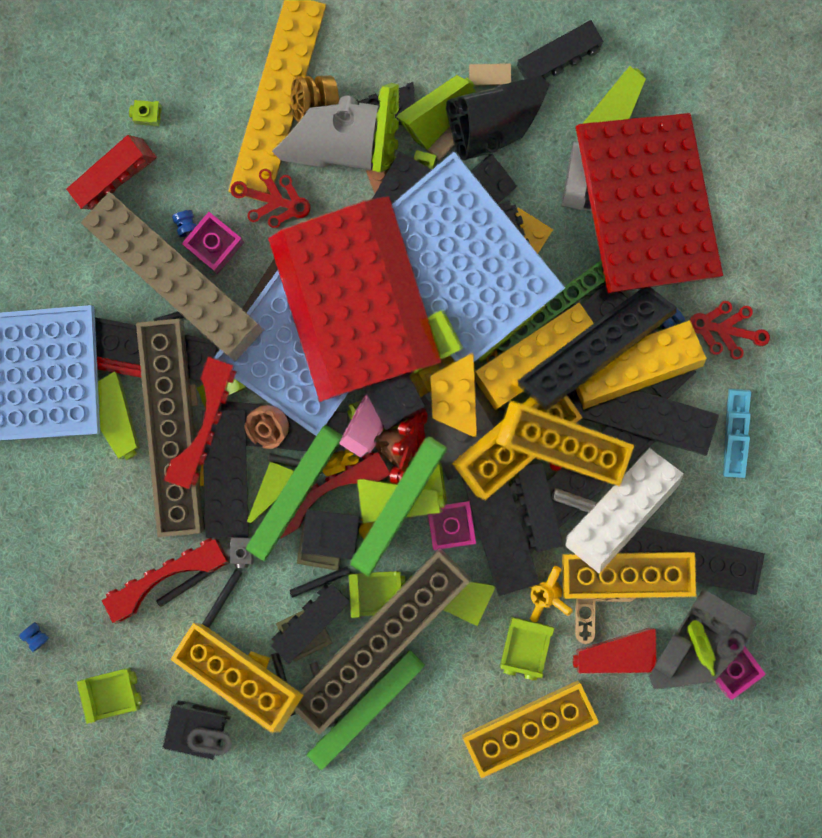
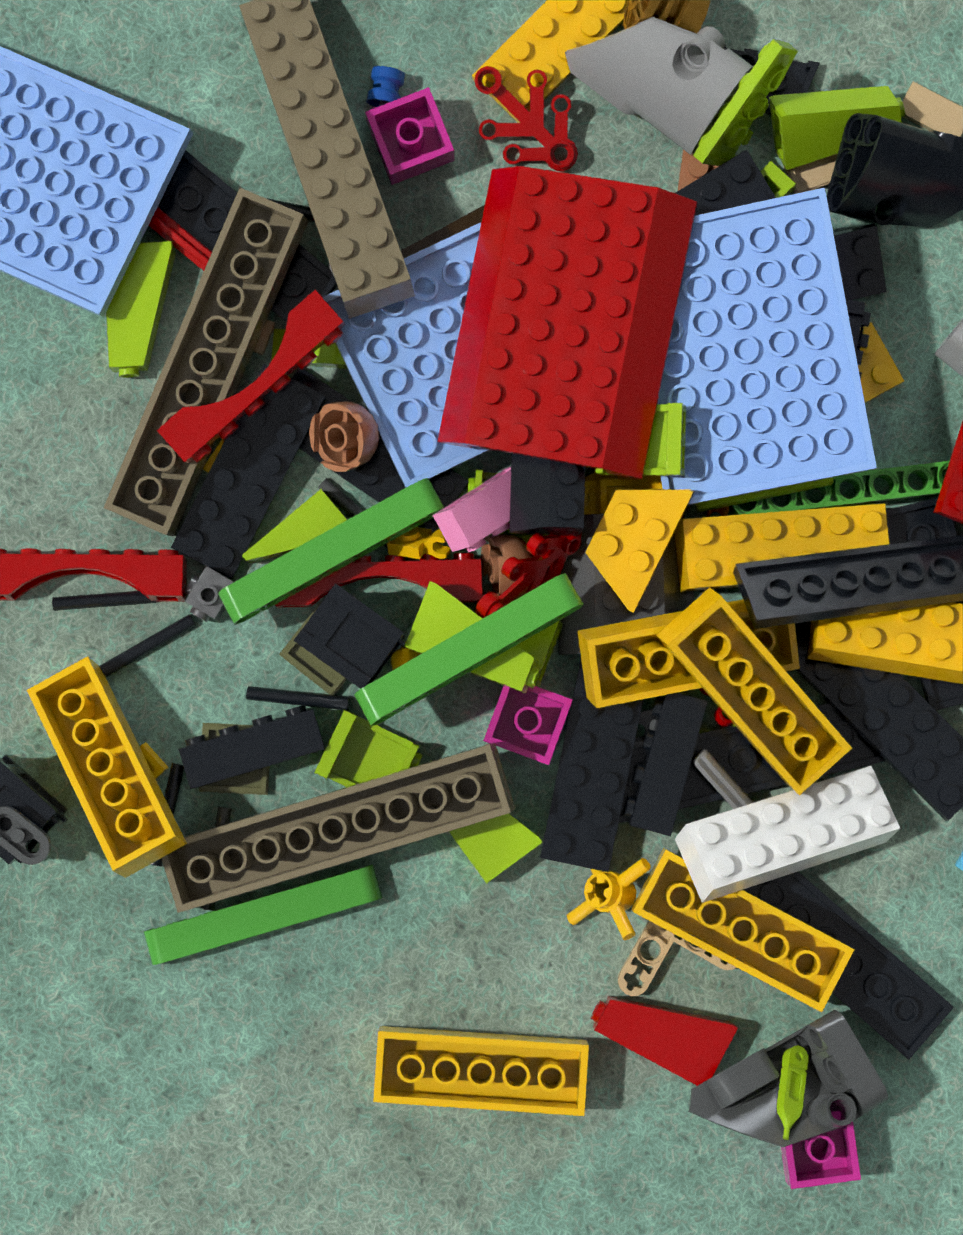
camera: 25 degrees right, 0 degrees up
(526, 648) = (538, 954): lime panel -> none

